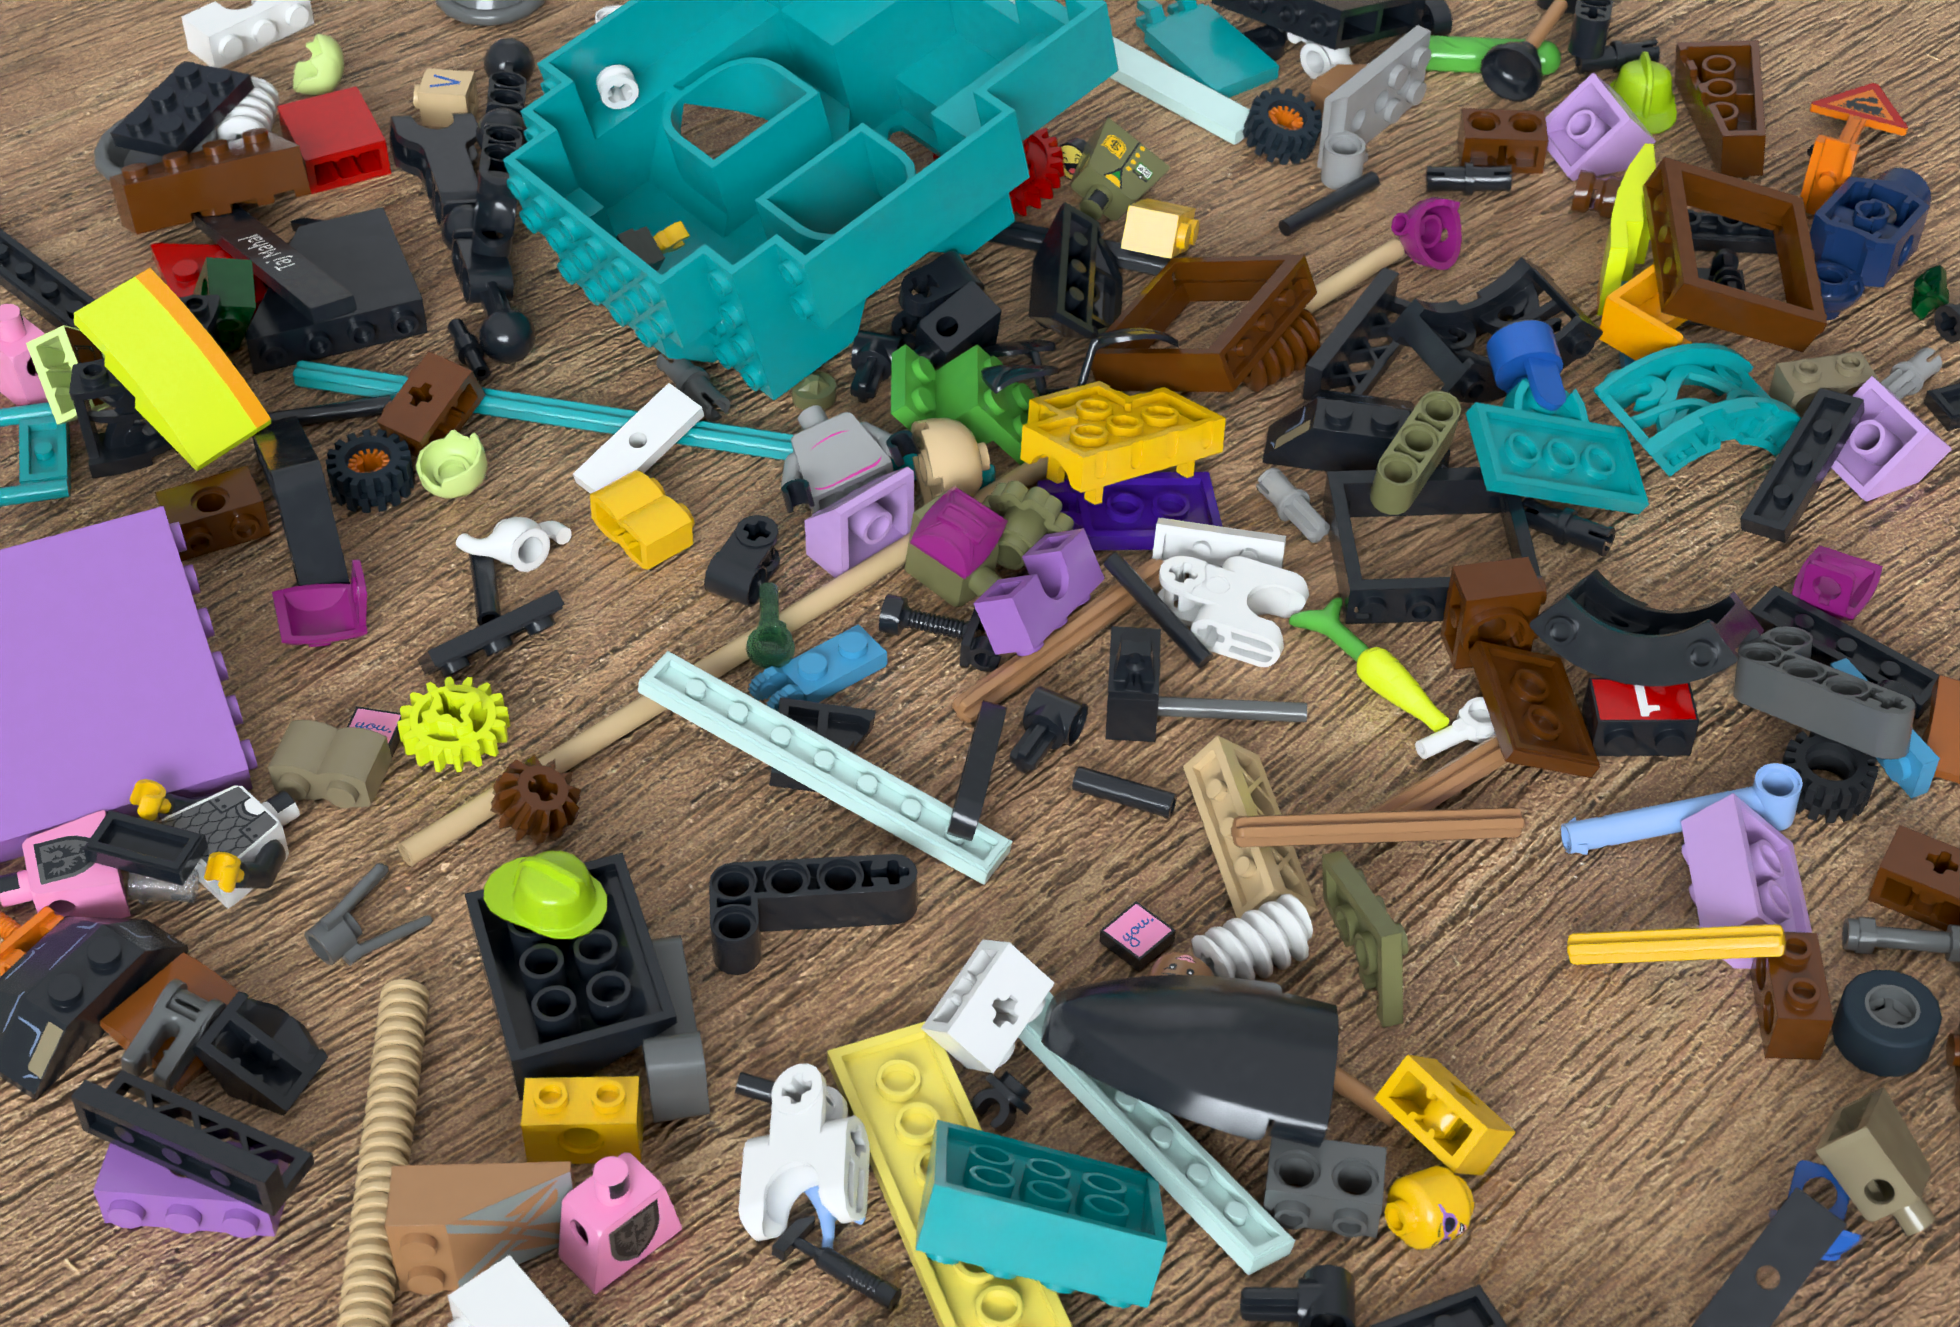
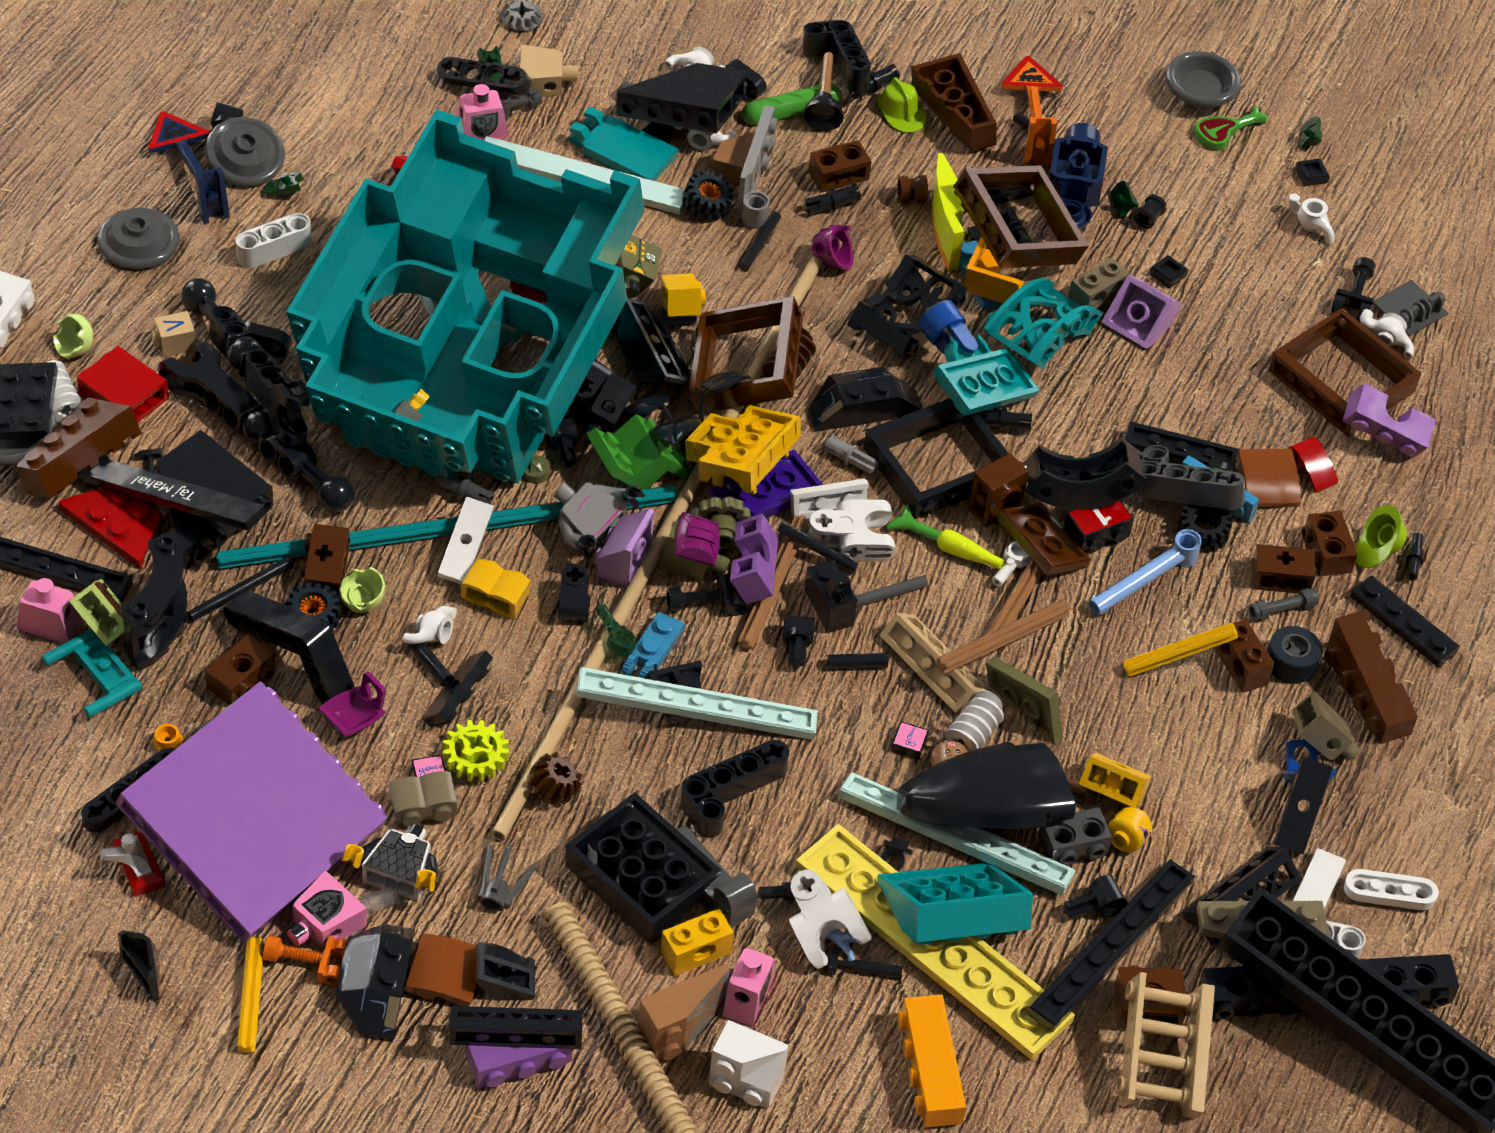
camera: 30 degrees left, 5 degrees up
(145, 847) = (369, 883): black tile -> none
(172, 369) = (185, 590): neon yellow slope -> none
(176, 1015) = (458, 967): dark grey piece -> none
(235, 285) = (153, 523): dark green brick -> none
(468, 349) = (311, 509): black bar -> none
(547, 894) = (611, 829): lime piece -> none
(617, 76) = (328, 307): white bush -> none
(948, 458) = (661, 494): tan cylinder -> none
(977, 771) = (781, 676): black beam -> none
(988, 1006) = (870, 806): white brick -> none
(1350, 343) = (826, 333): black fence -> none
(1415, 452) = (913, 404): olive beam -> none
(1594, 131) = (891, 143): lavender slope -> none
(1742, 871) = (1190, 598): lavender slope -> none
(1802, 465) = (1111, 340): black plate -> none
(1837, 582) = (1160, 408): magenta piece -> none
(1909, 376) = (1138, 259): light grey axle -> none

